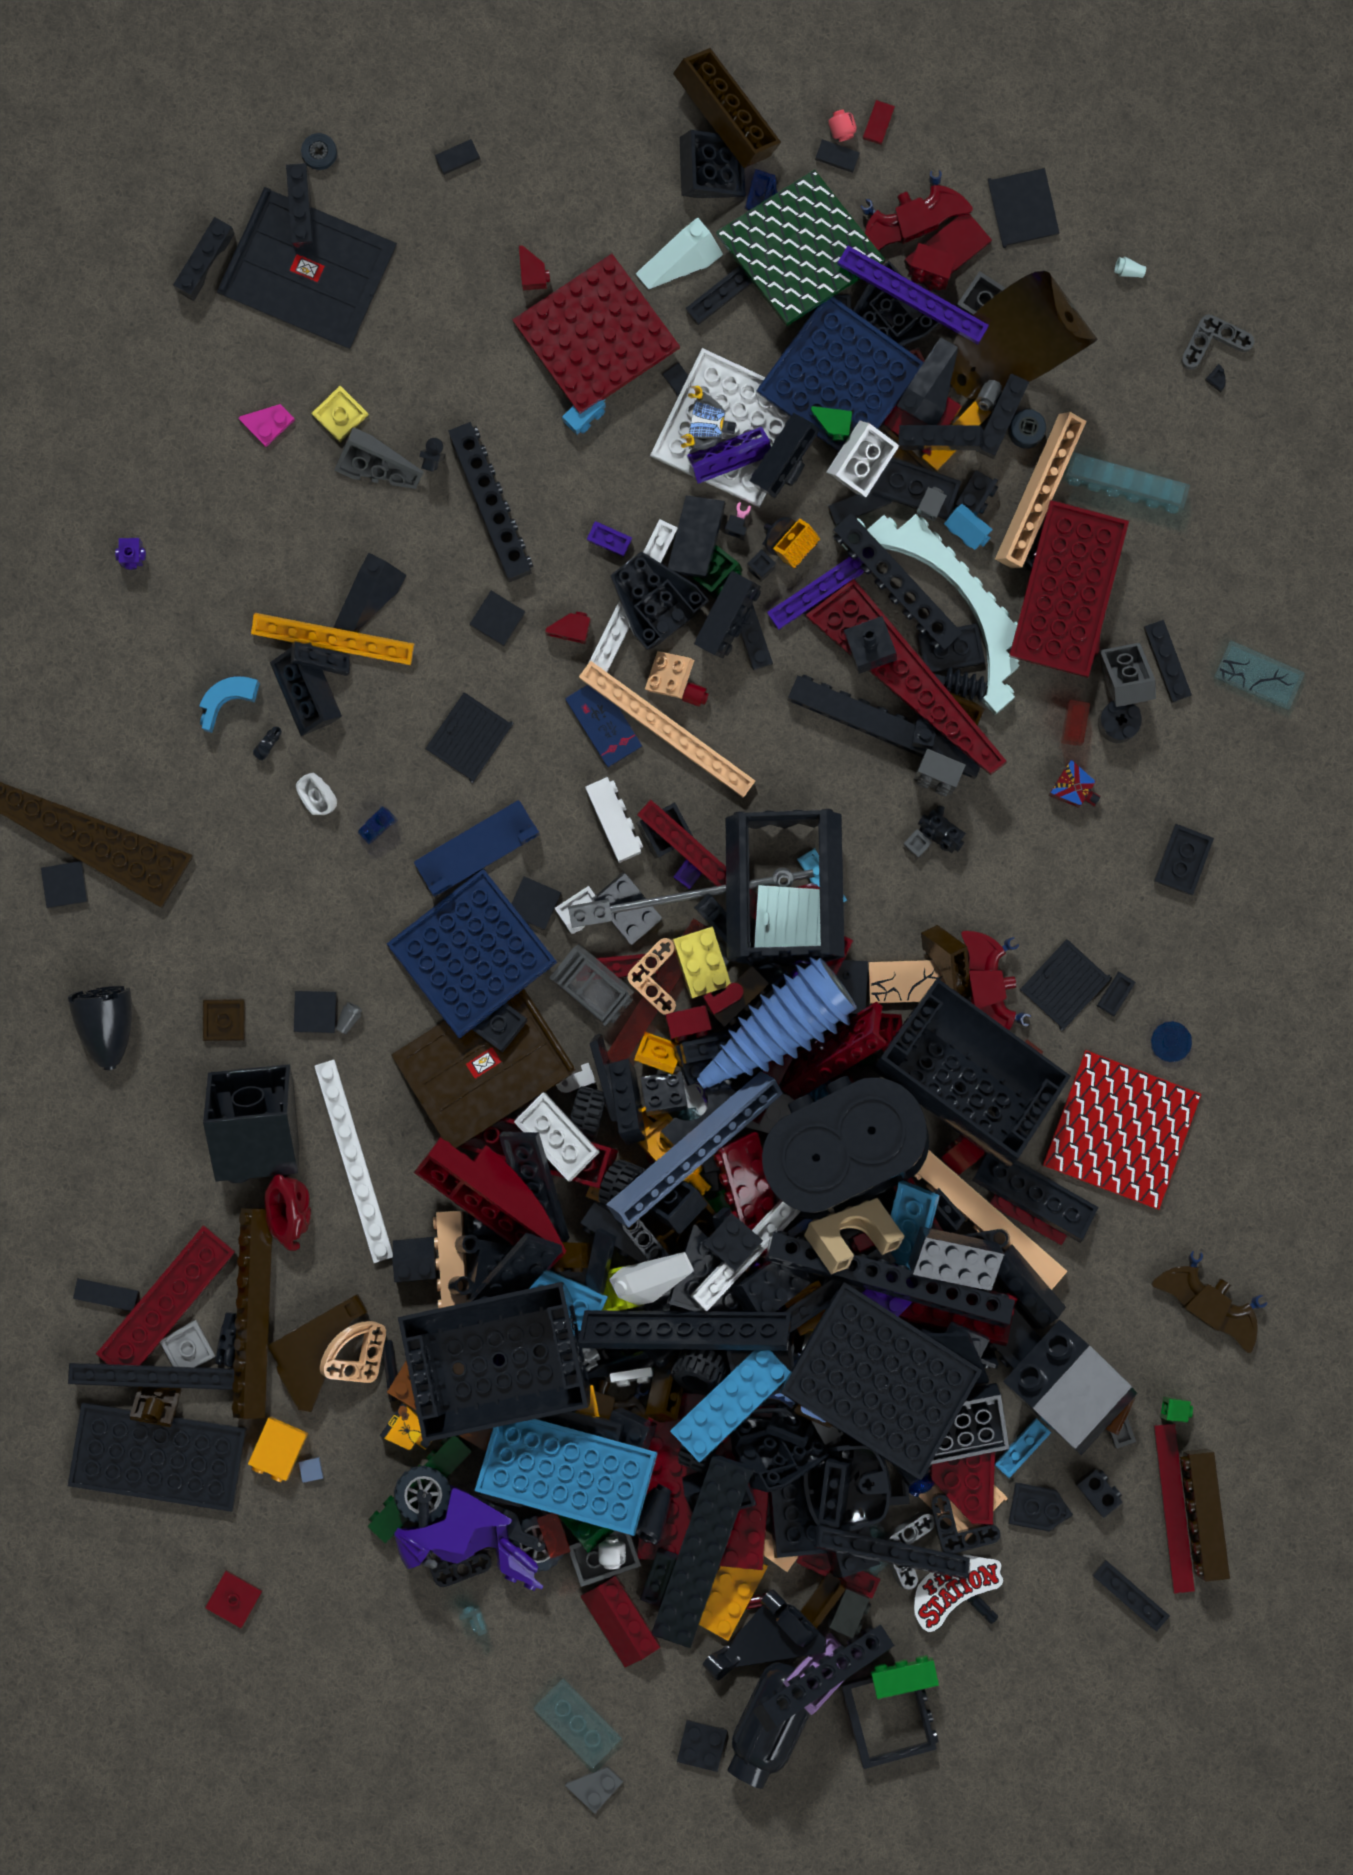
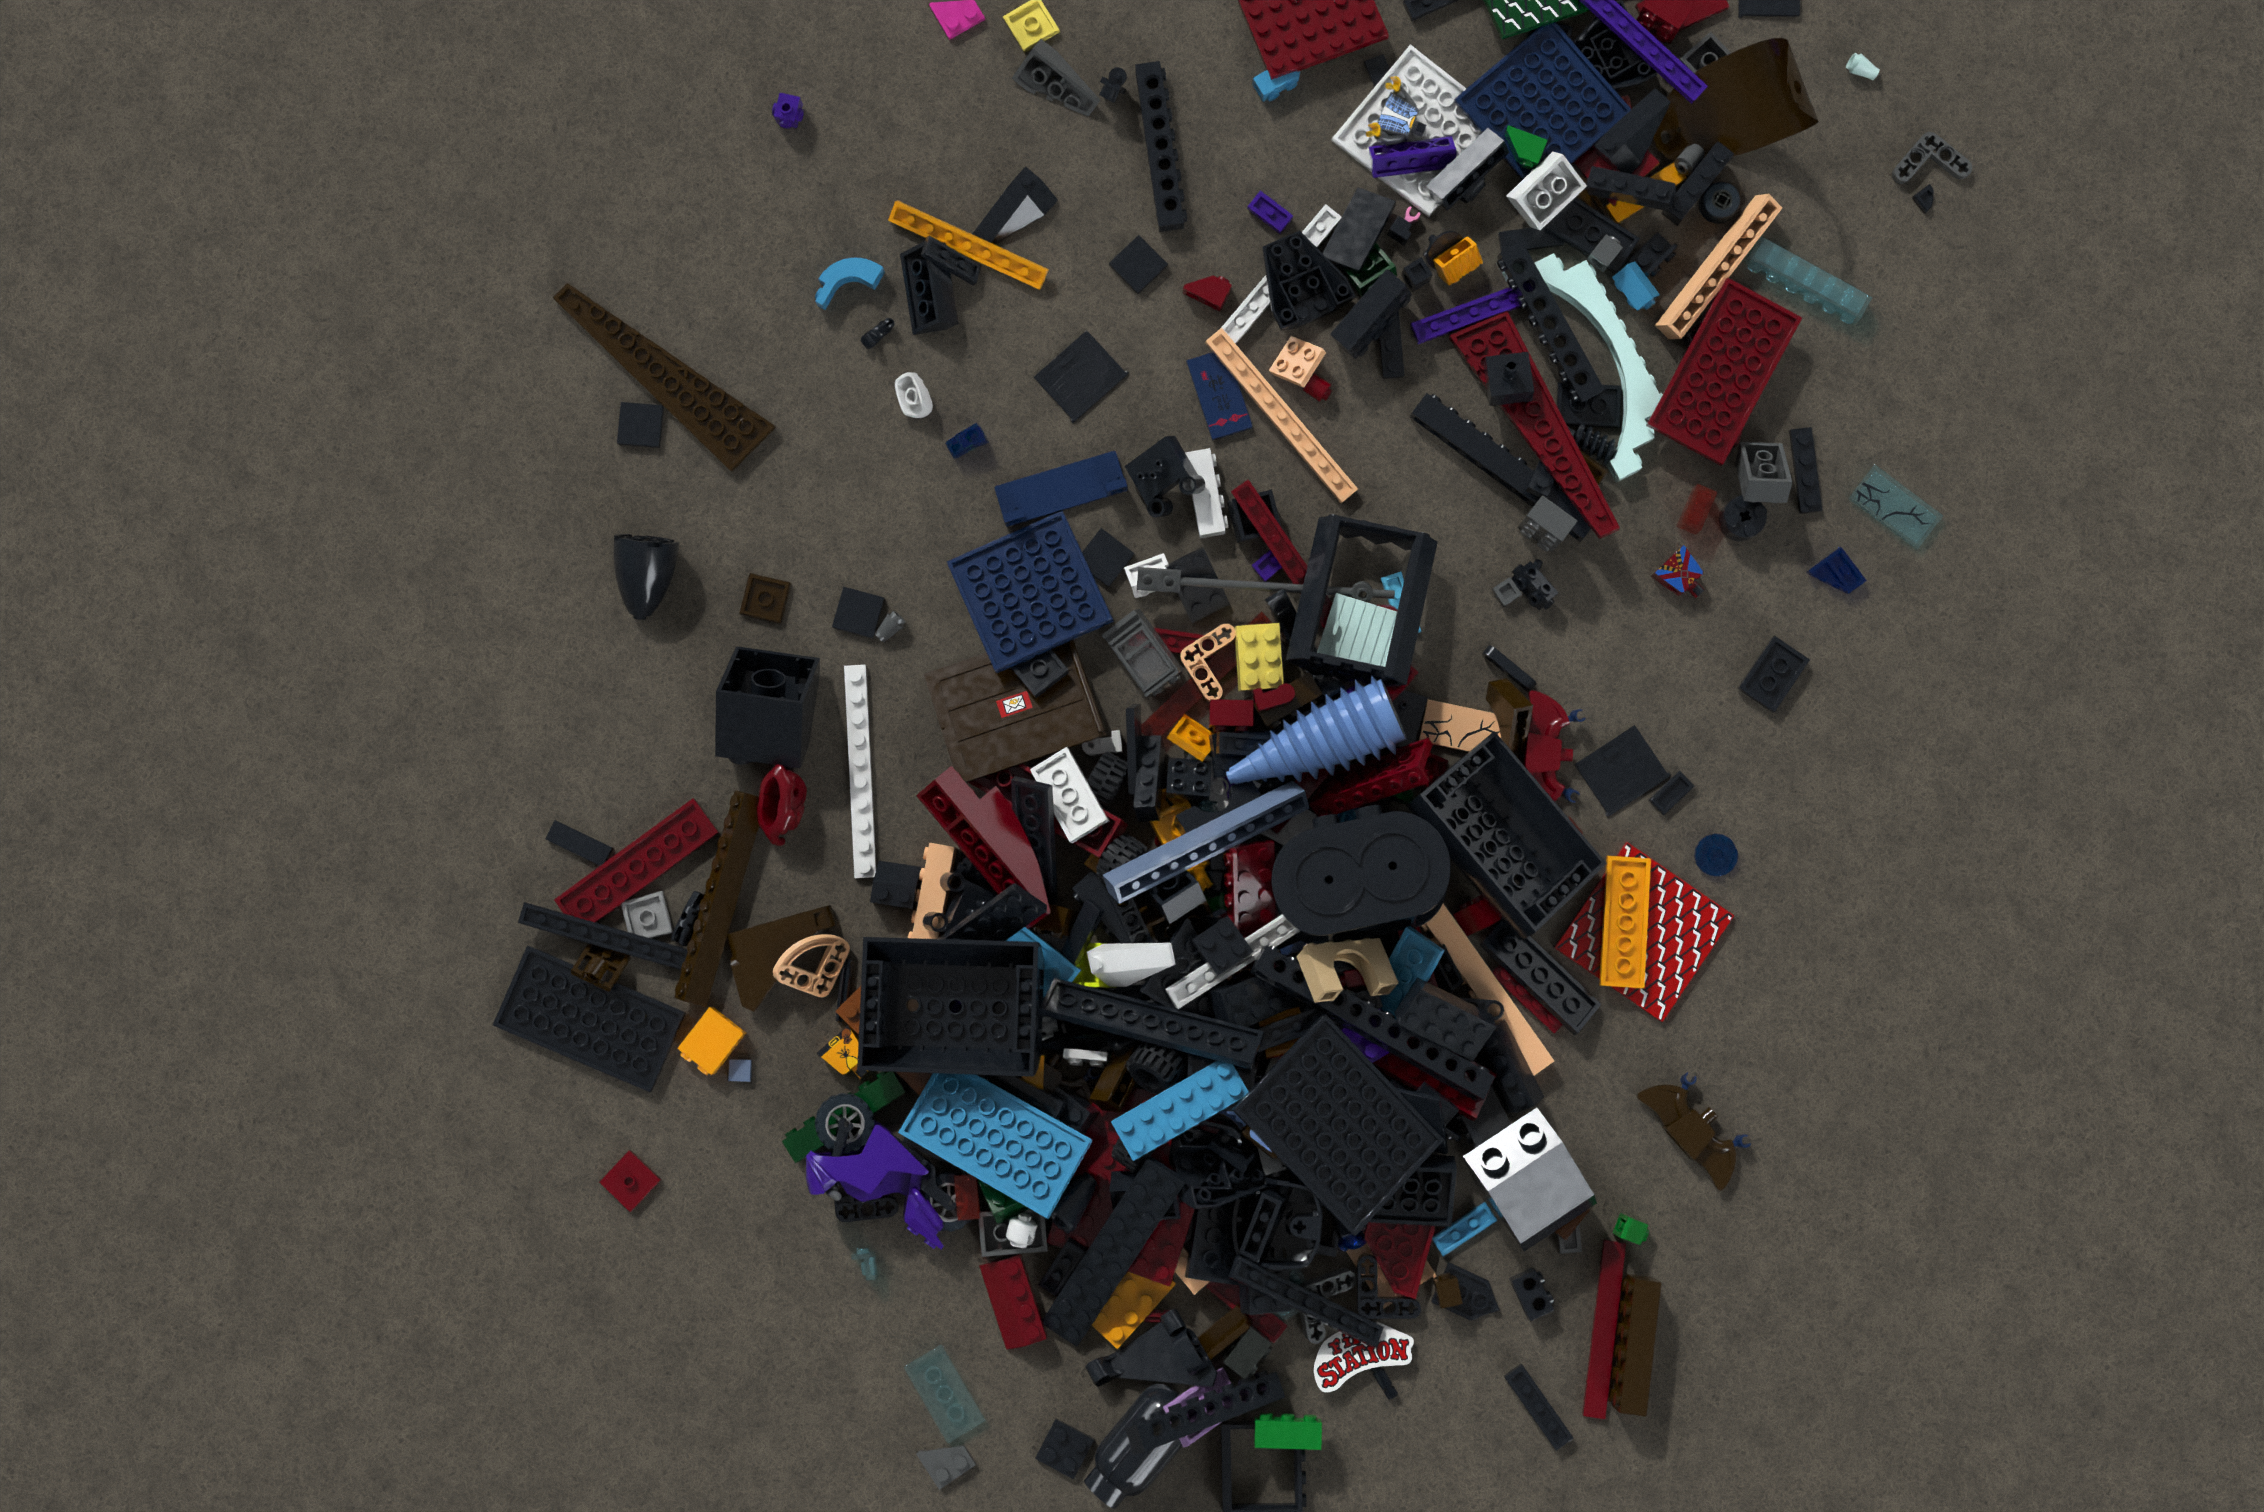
camera: 20 degrees right, 0 degrees up
(566, 809) = (1160, 471): none -> black piece
(934, 912) = (1512, 669): none -> black beam
(1020, 1509) = (1447, 1290): none -> dark brown brick
(1101, 1125) = (1625, 922): none -> light orange plate
(1220, 749) = (1838, 572): none -> clear blue wing

